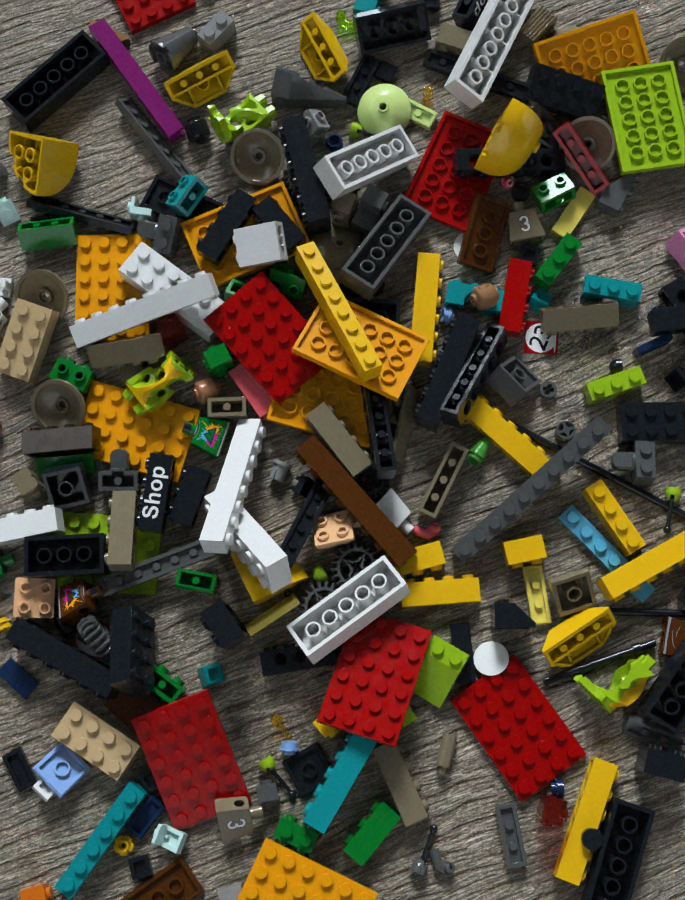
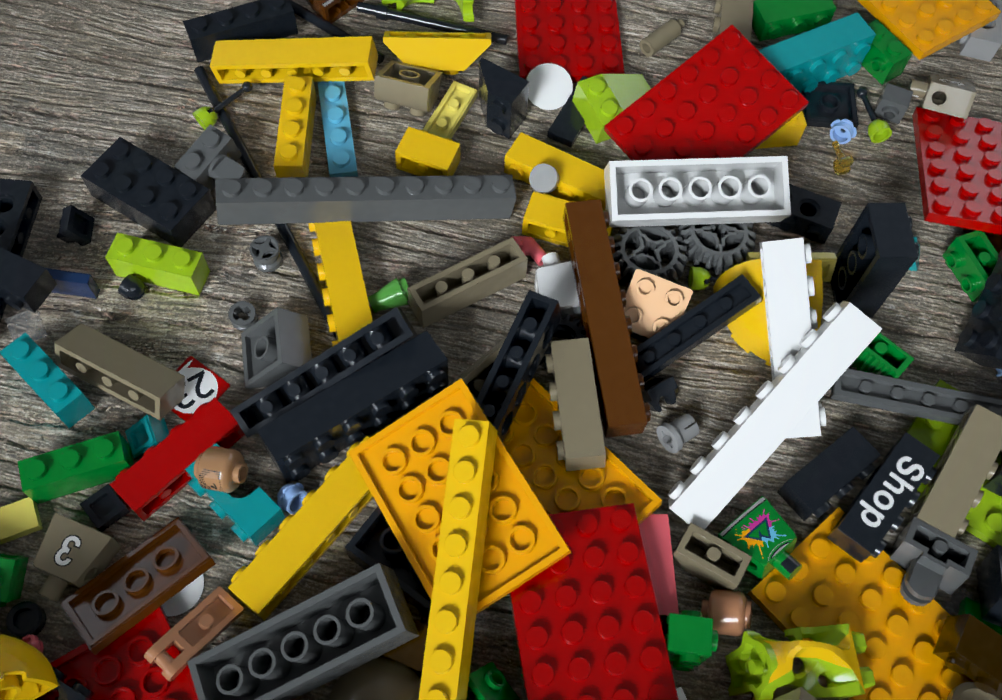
camera: 155 degrees left, 15 degrees down
(440, 229) = (194, 632): none -> nougat plate
(444, 574) = (544, 178): none -> light grey tile

